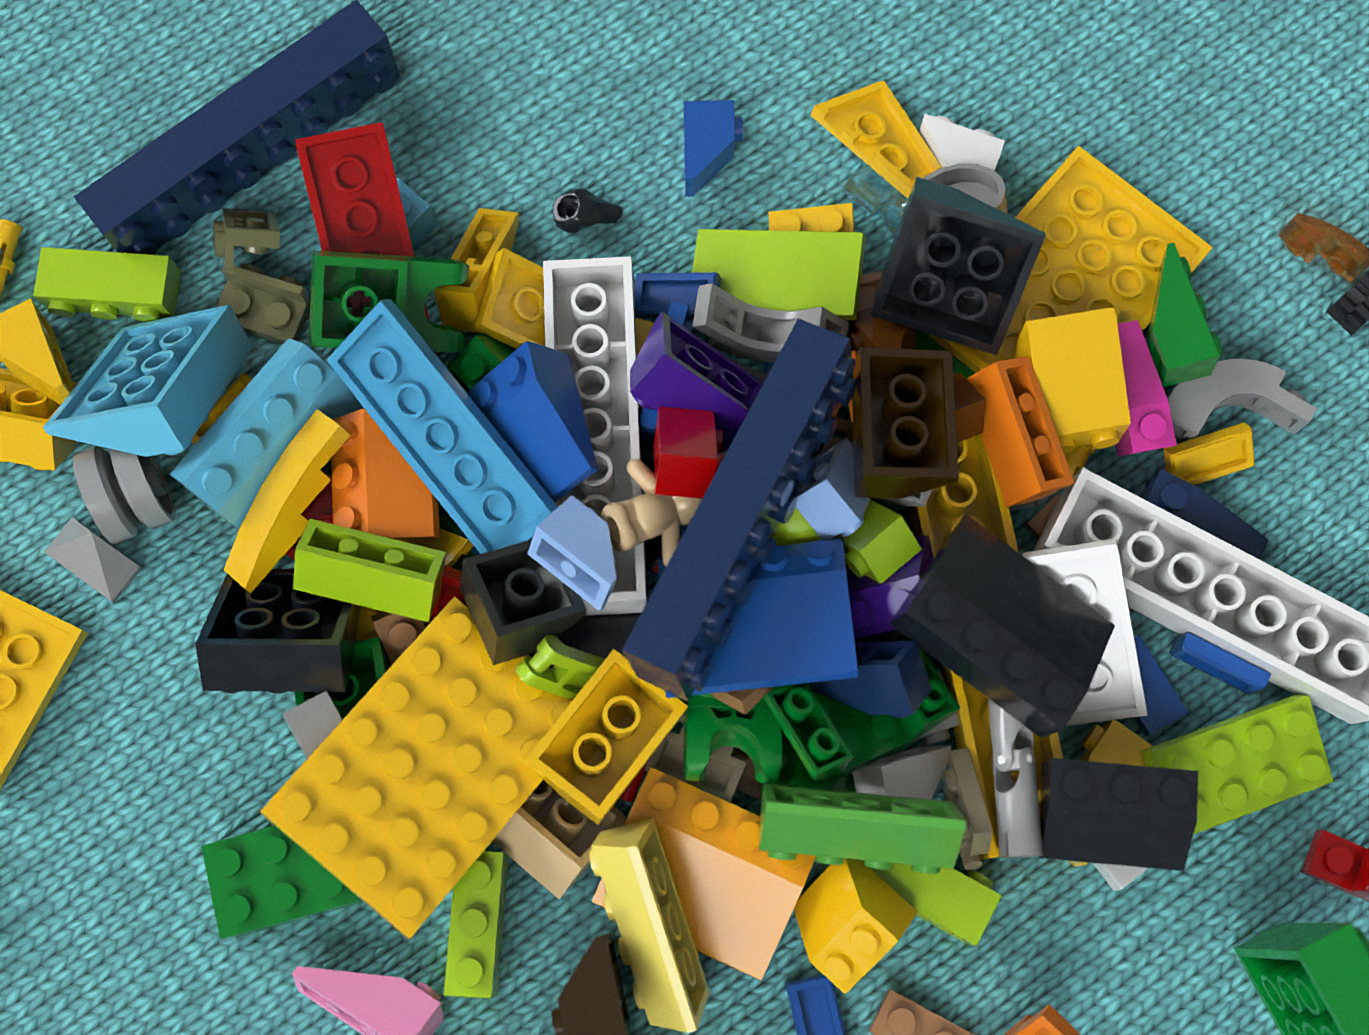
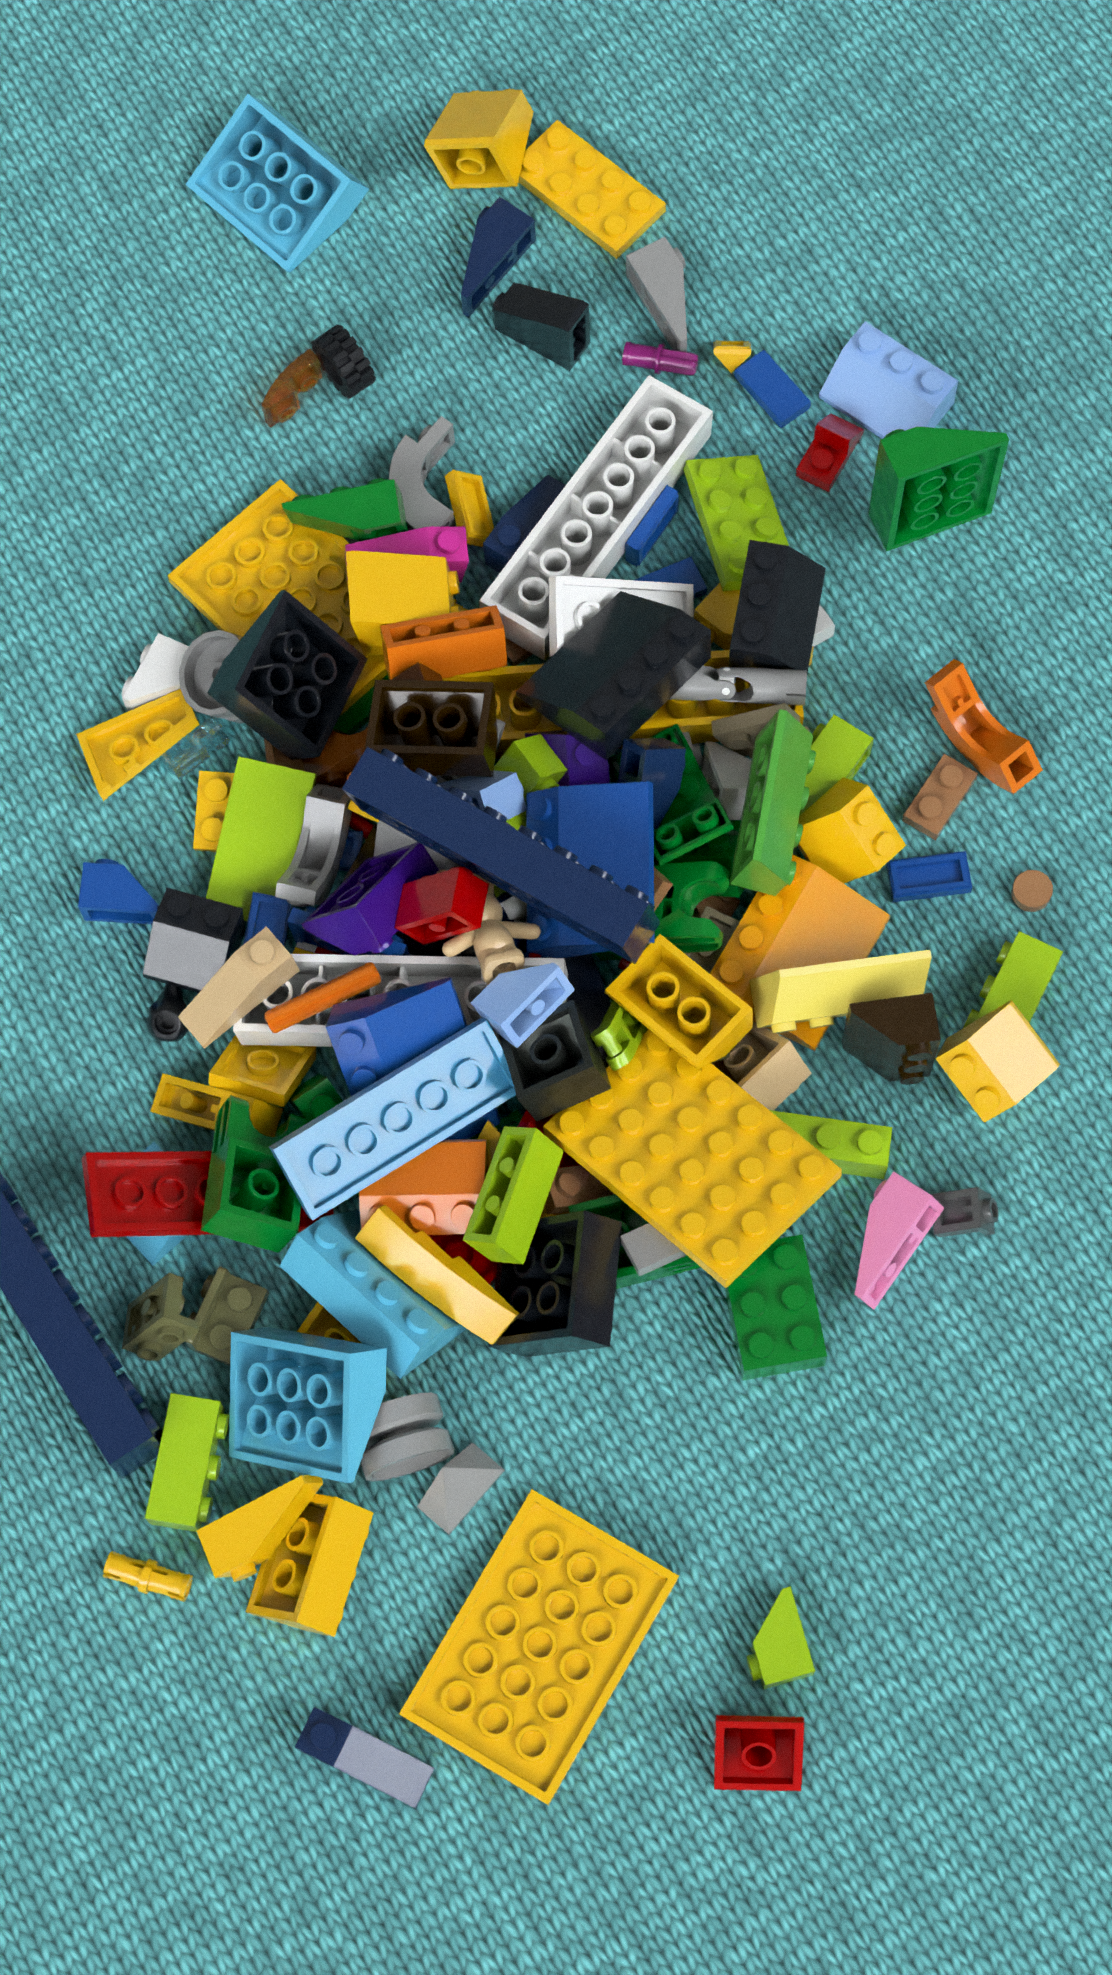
camera: 80 degrees left, 5 degrees down
(580, 344) = (322, 997): none -> orange axle
(587, 259) = (239, 987): none -> tan slope
(658, 221) = (191, 939): none -> slope

